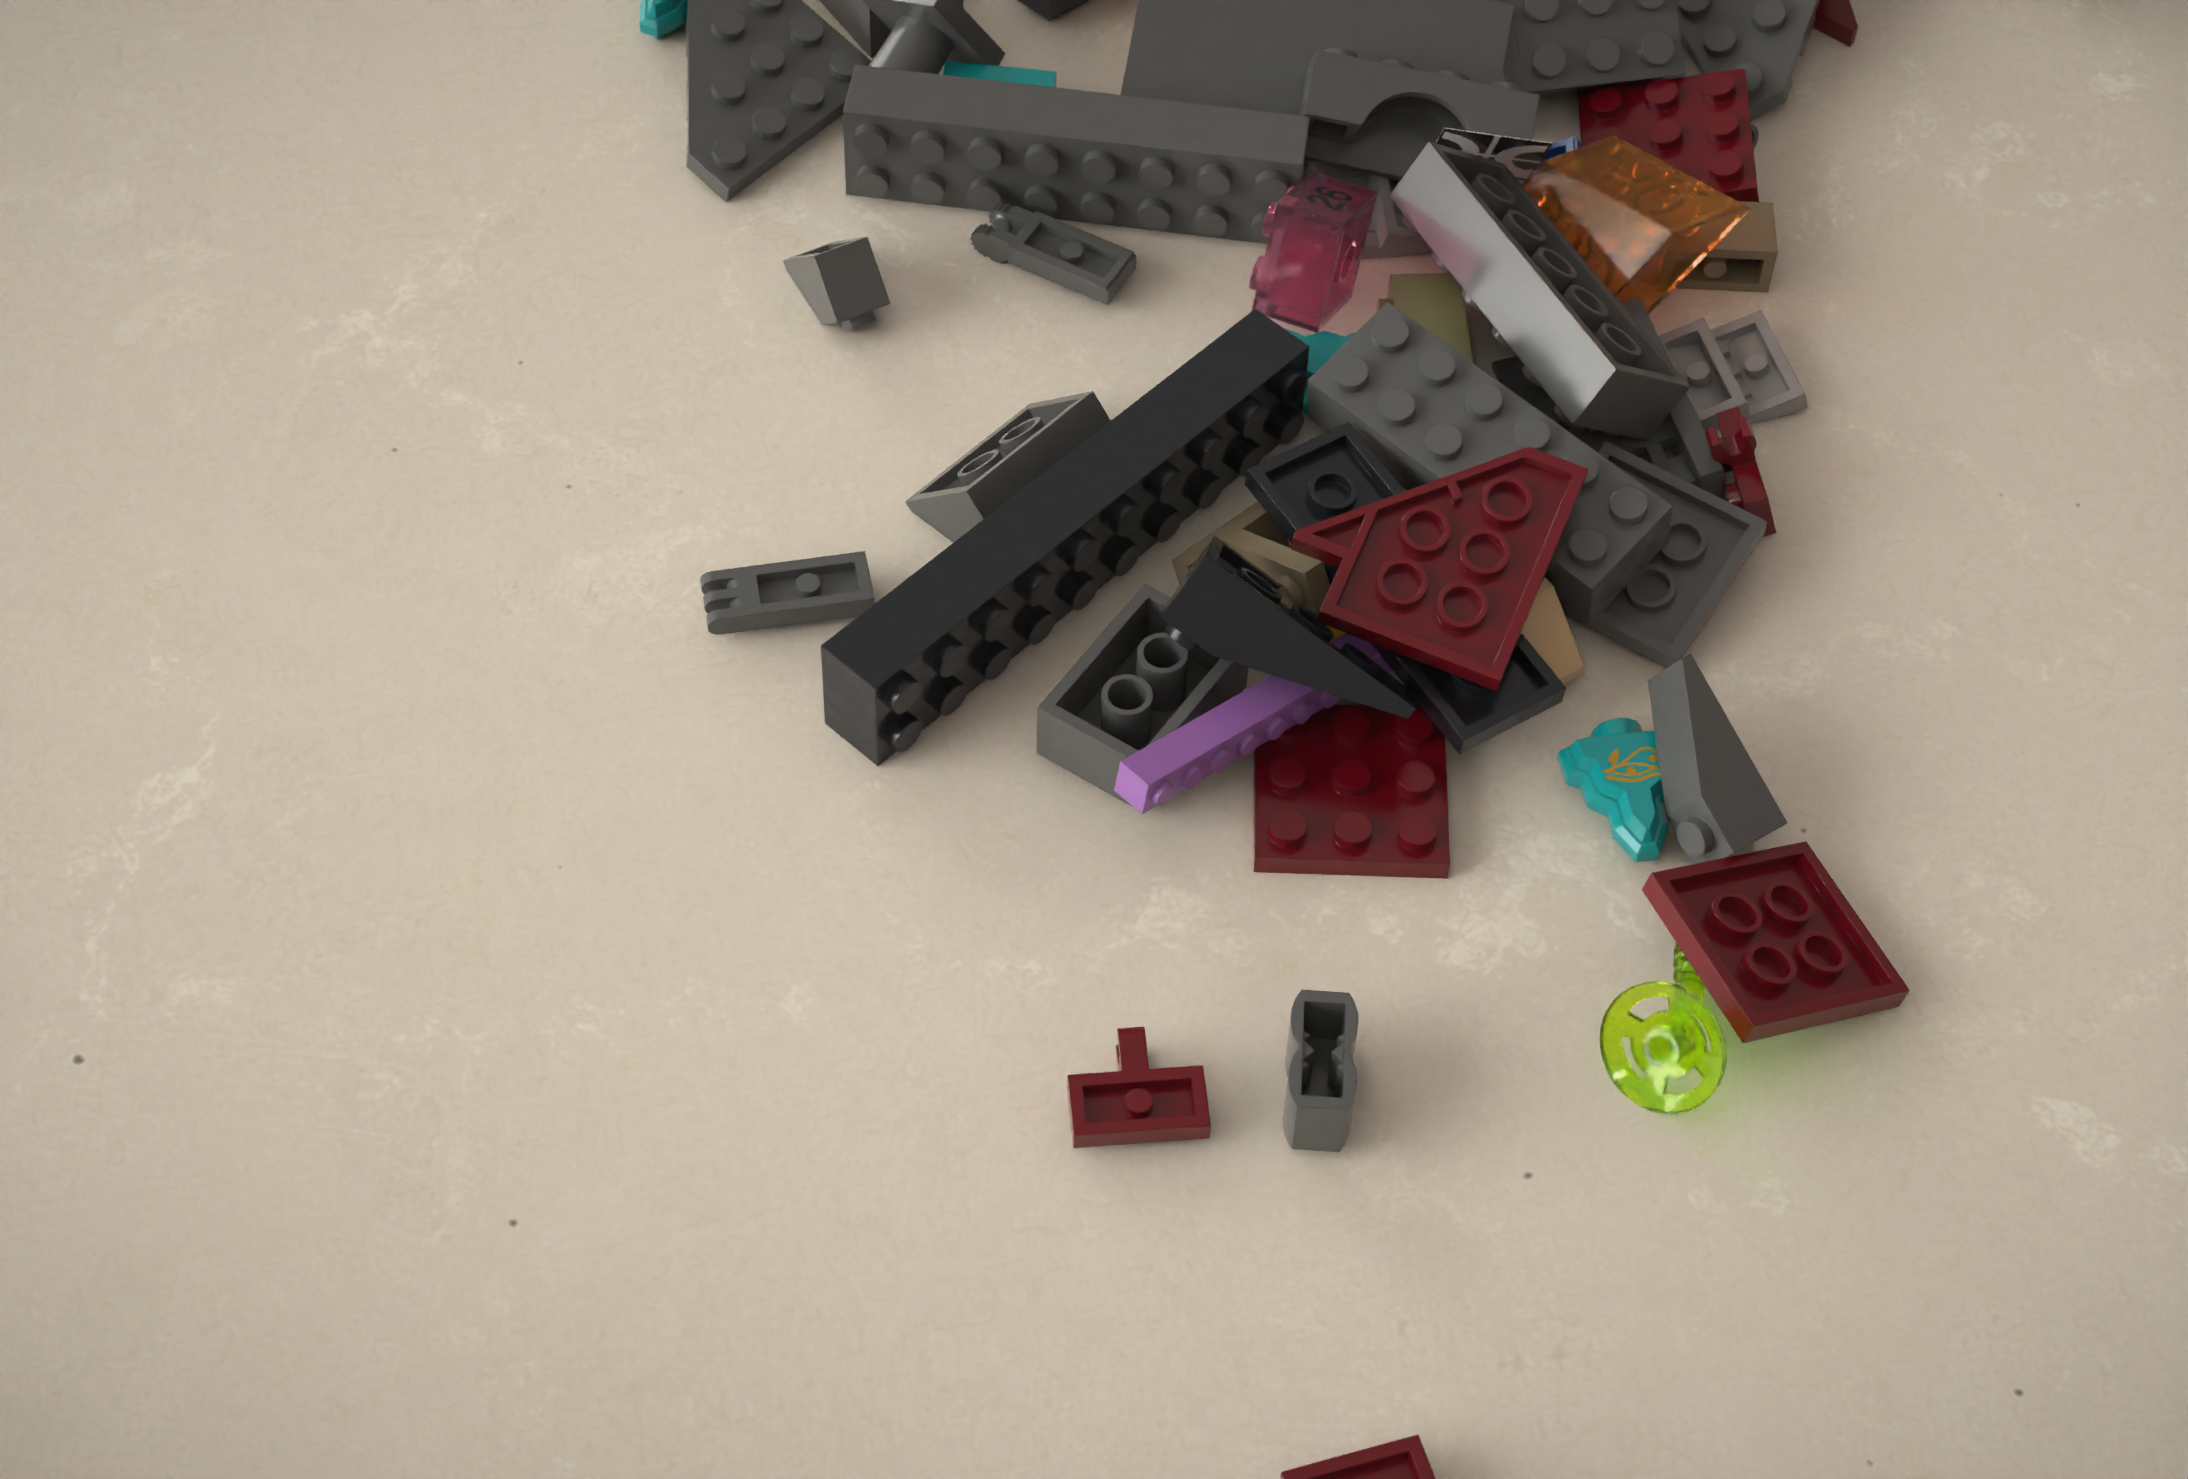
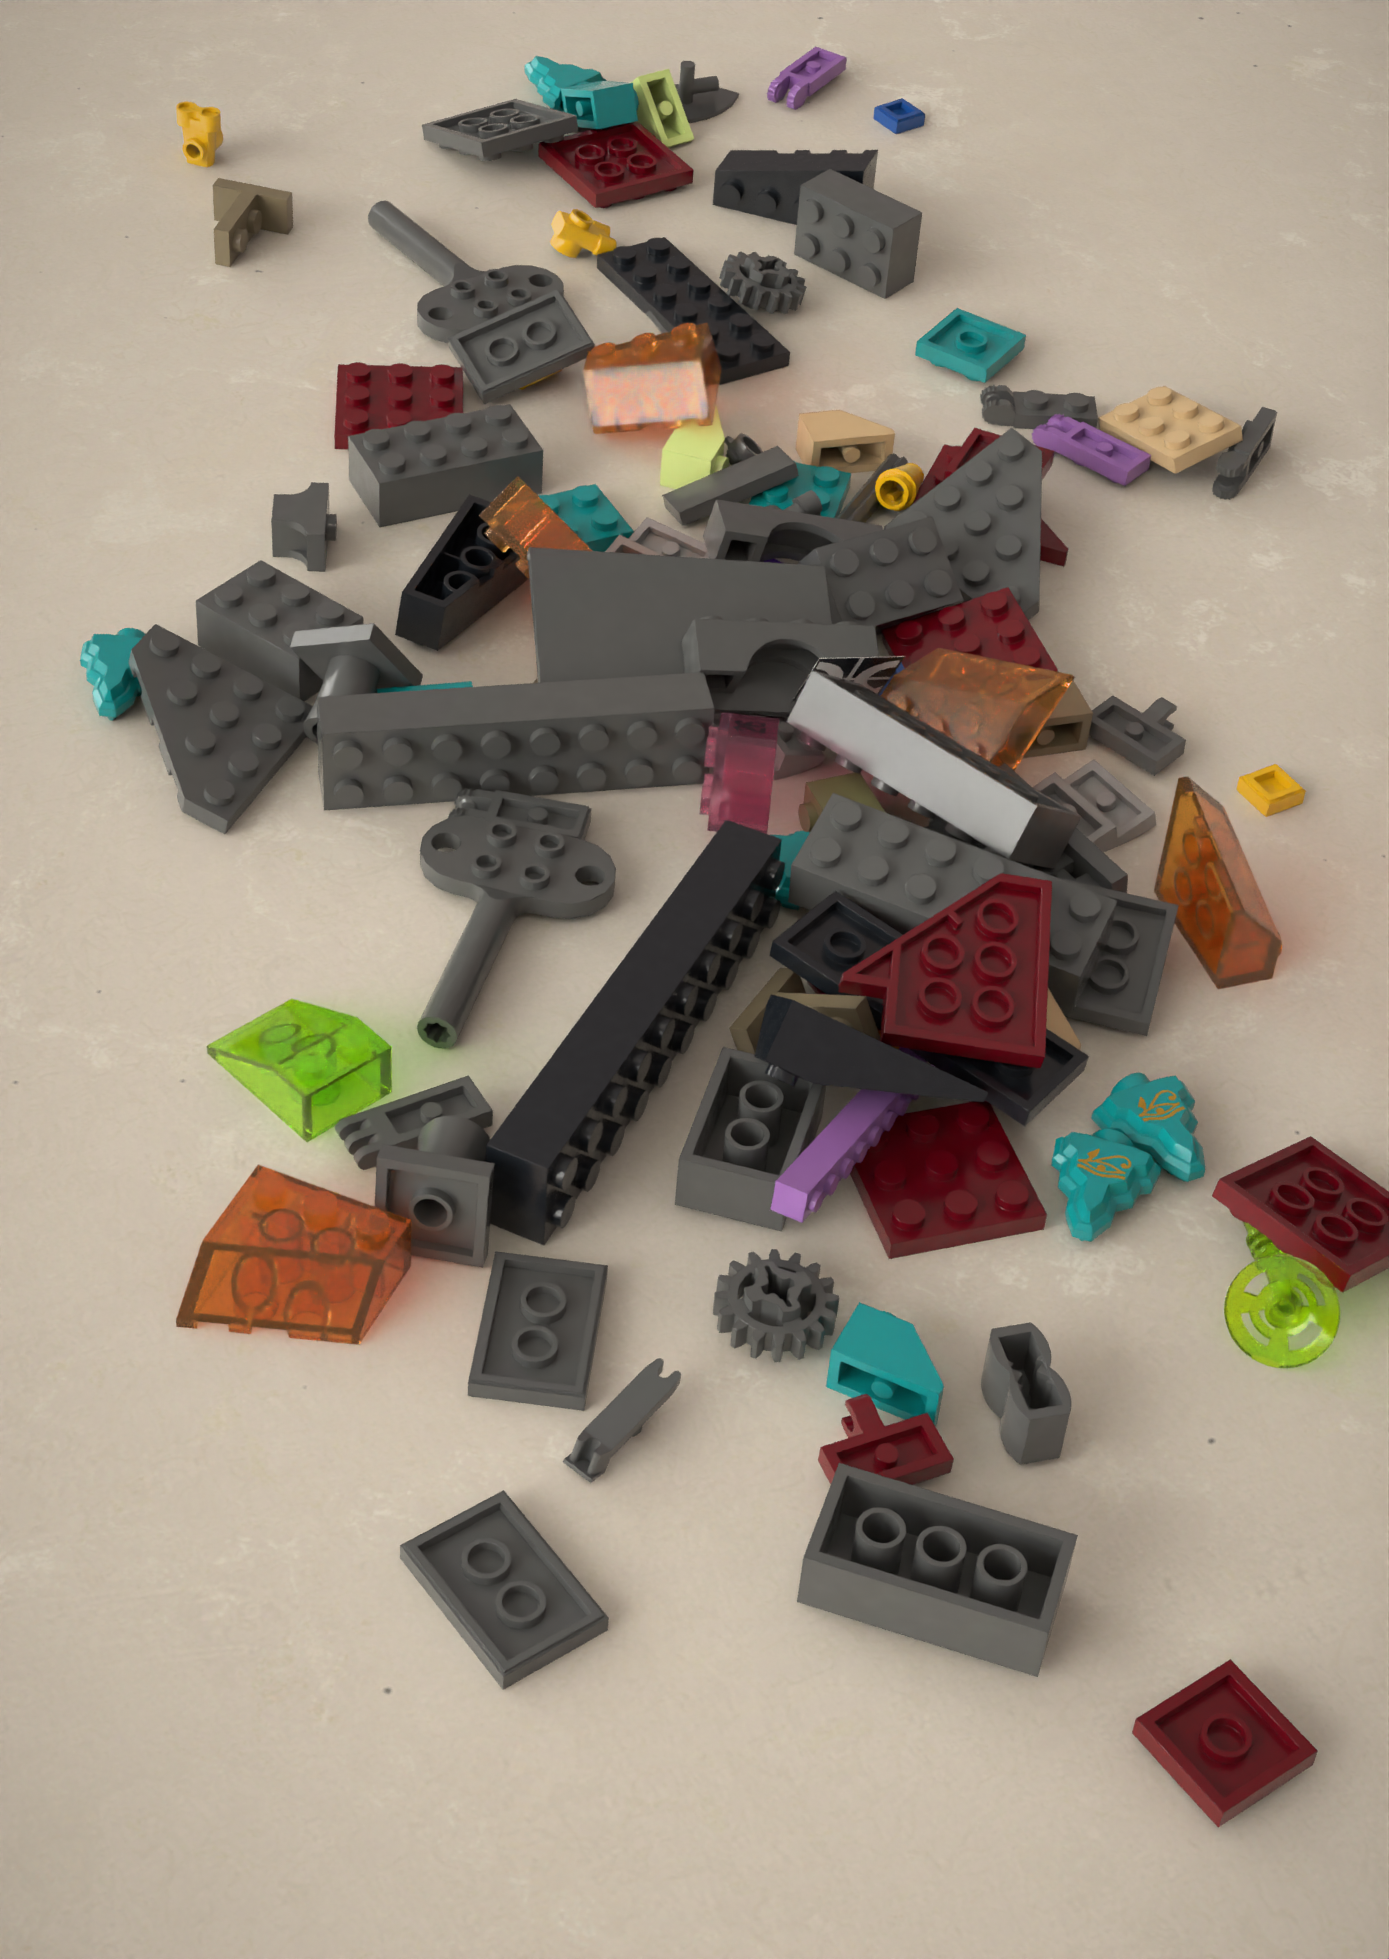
camera: 20 degrees left, 10 degrees down
(595, 727) = (297, 1262): none -> clear orange wedge
(673, 1144) = (503, 1589): none -> dark grey tile
(700, 499) = (308, 1064): none -> clear neon green slope
(767, 689) = (441, 1189): none -> dark grey plant
(828, 864) = (538, 1331): none -> dark grey tile
(840, 282) = (355, 873): dark grey slope -> none
(869, 988) = (621, 1420): none -> dark grey piece
(1006, 462) = (559, 987): dark grey slope -> none
(1011, 316) = (508, 875): none -> dark grey piece
(1060, 907) = (775, 1305): none -> dark grey gear
(1132, 1247) = (936, 1569): none -> dark grey brick
(1180, 996) = (887, 1362): none -> teal slope
(1531, 836) = (1100, 1178): none -> teal rock
(1705, 772) = (1219, 1096): dark grey slope -> none
(1736, 454) = (1133, 860): dark red plate -> none
(1823, 512) = (1215, 892): none -> clear orange wedge
(1832, 290) = (1138, 736): none -> dark grey plate
(1971, 391) = (1270, 790): none -> yellow tile

